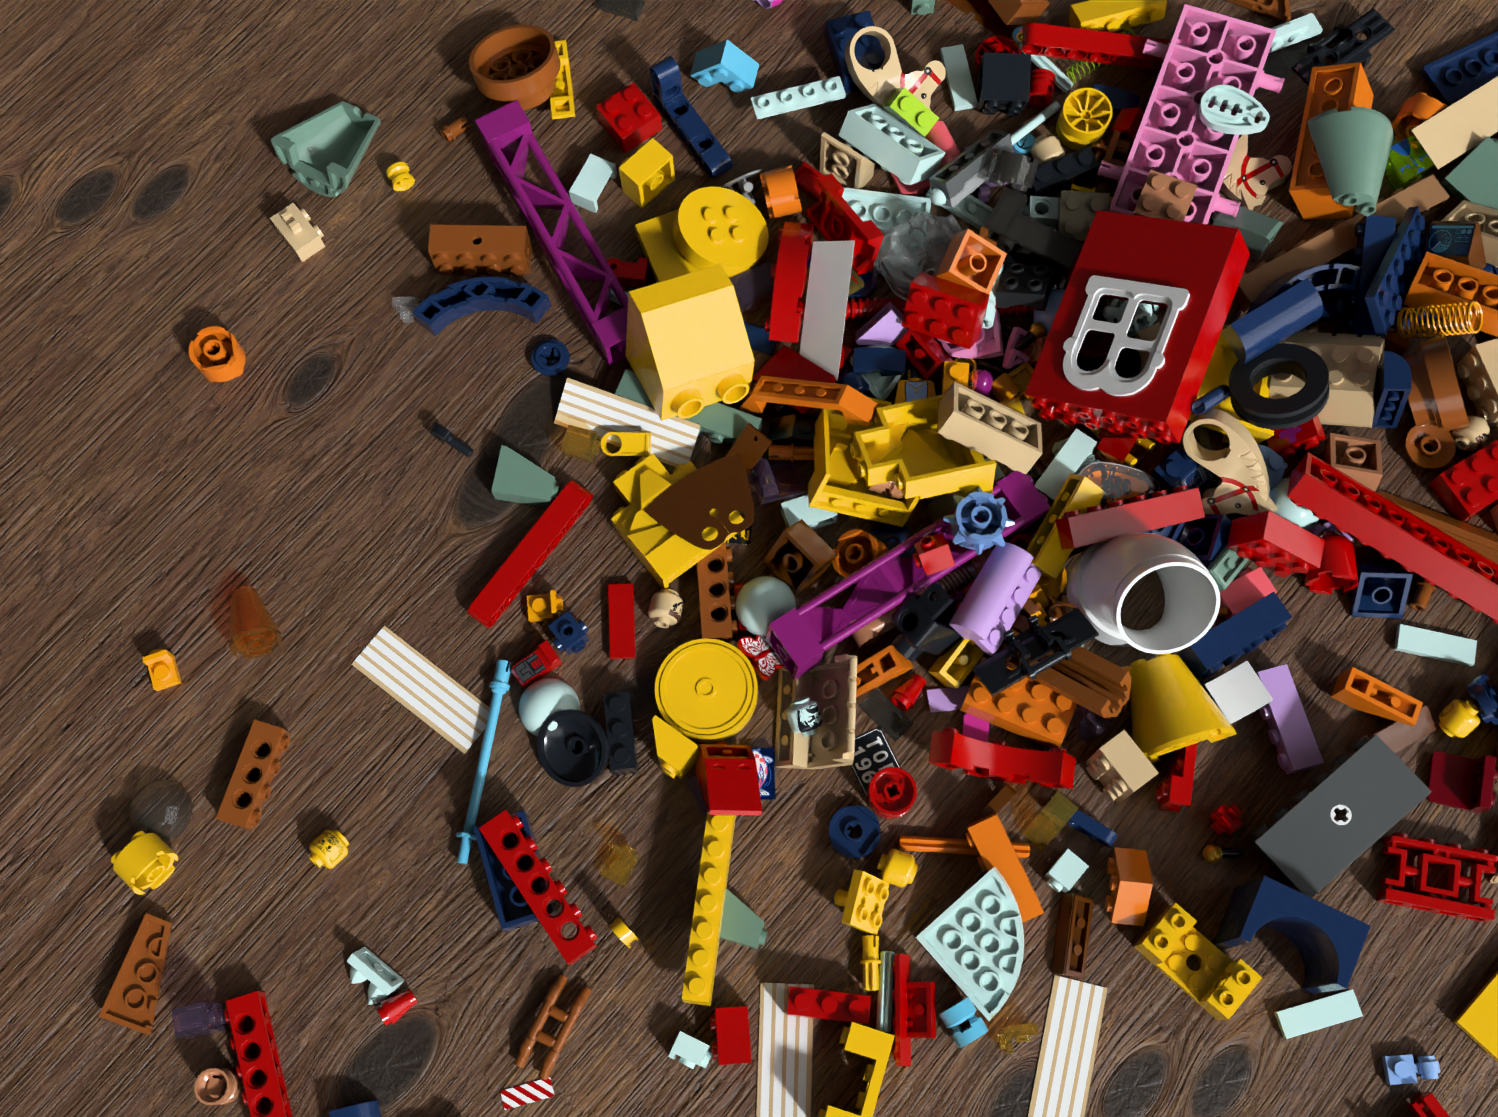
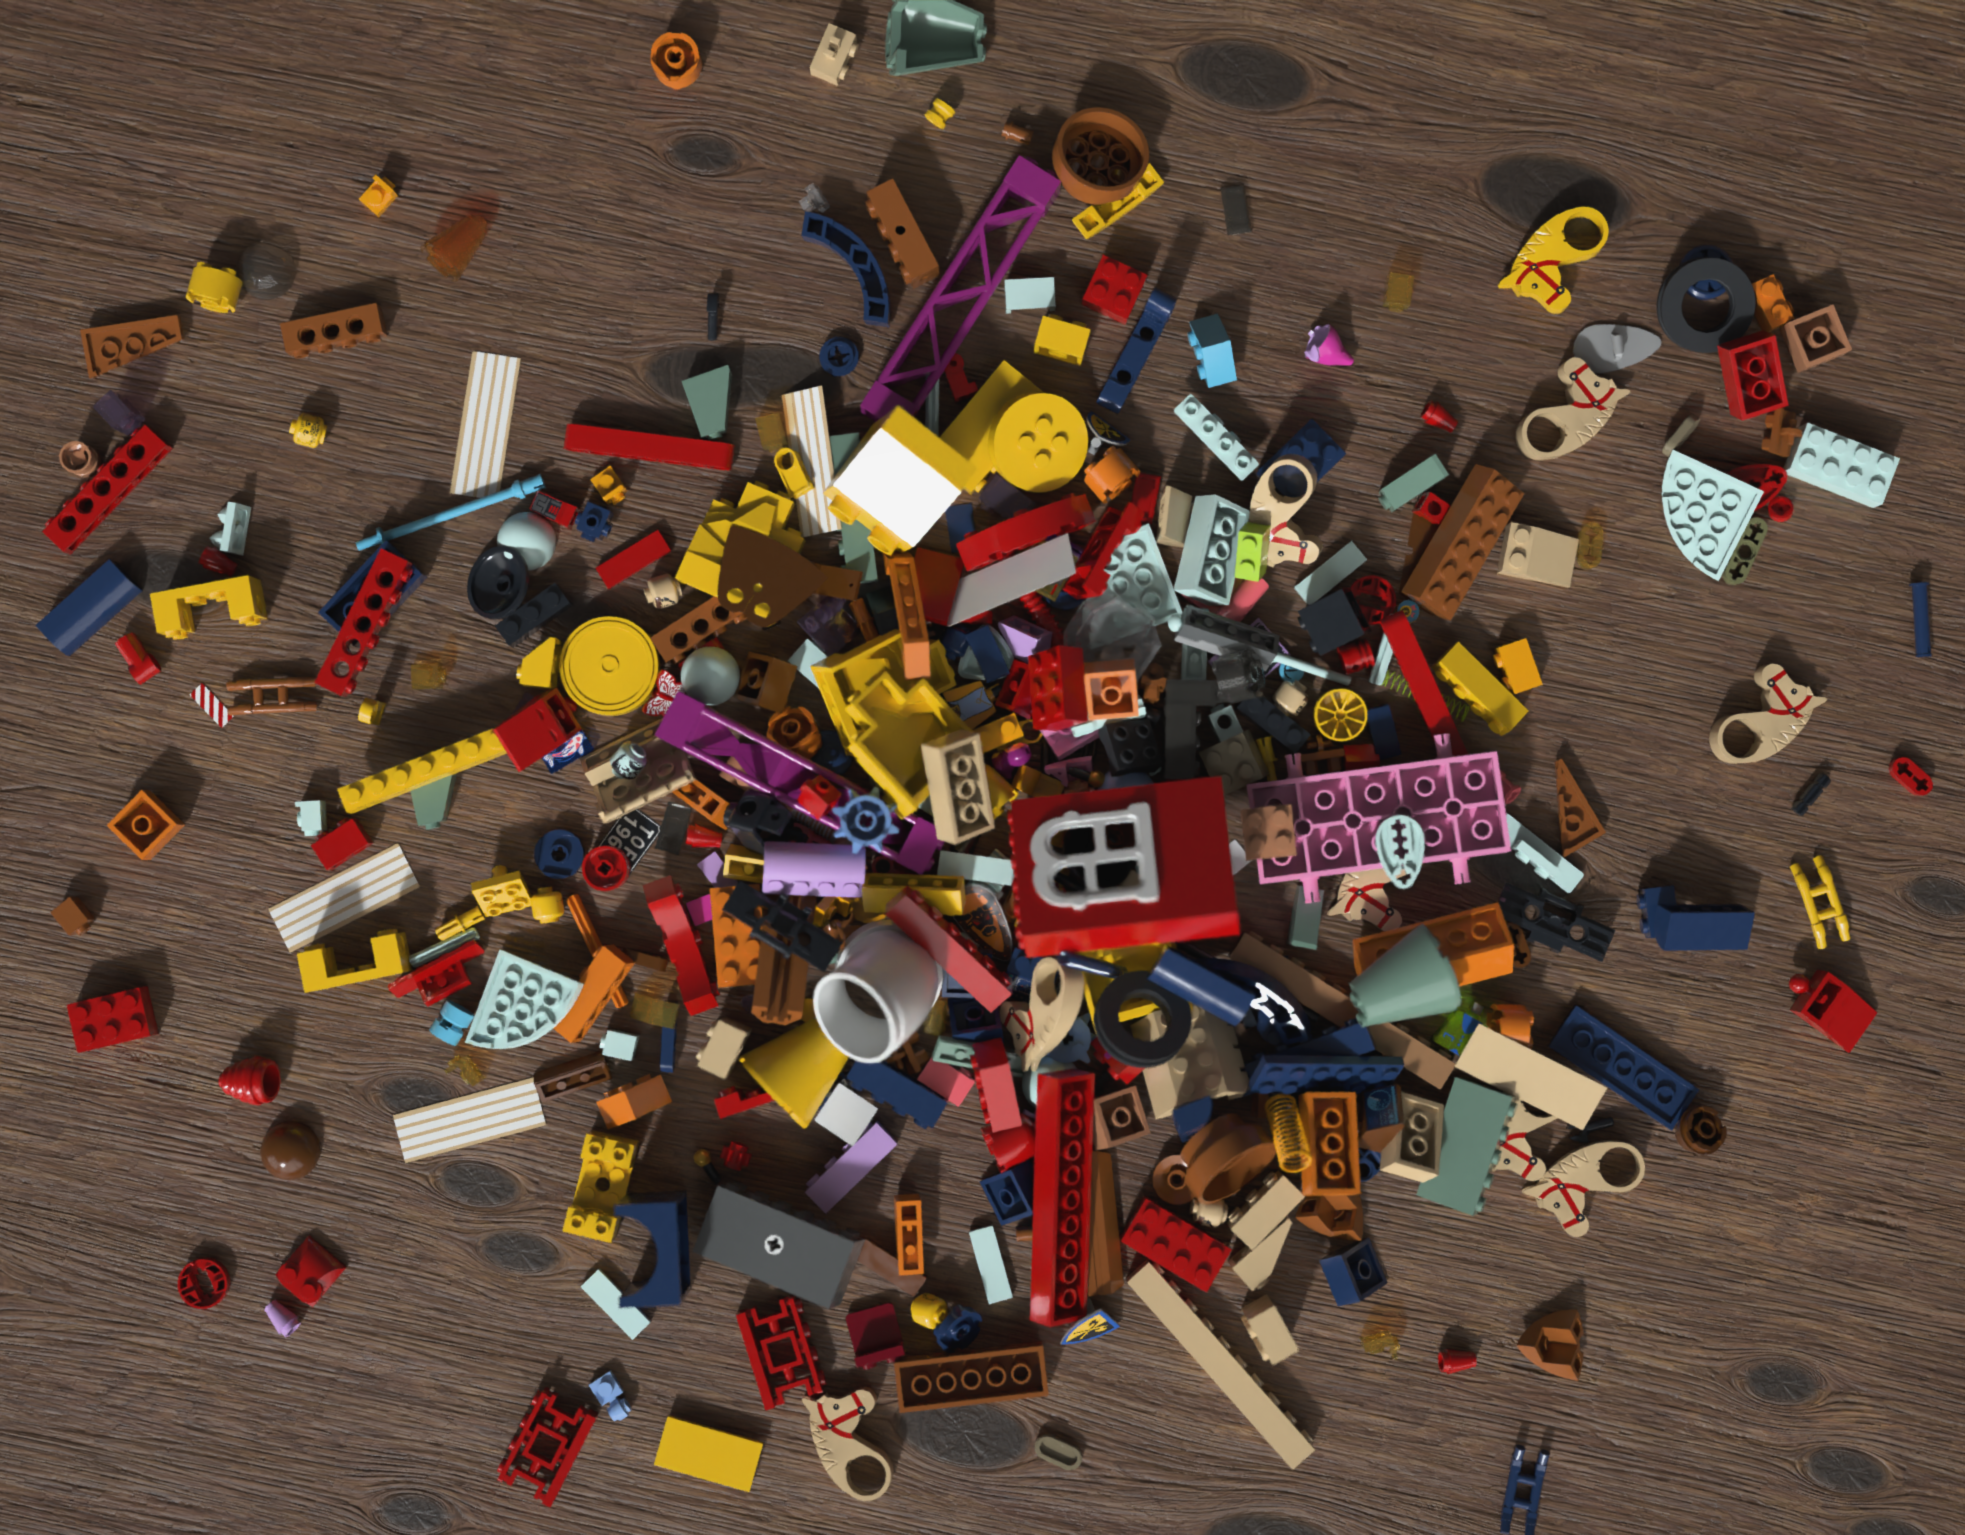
camera: 55 degrees right, 15 degrees up
(416, 1074) = (174, 613): none -> yellow plate
(828, 1005) = (405, 907): red brick -> none

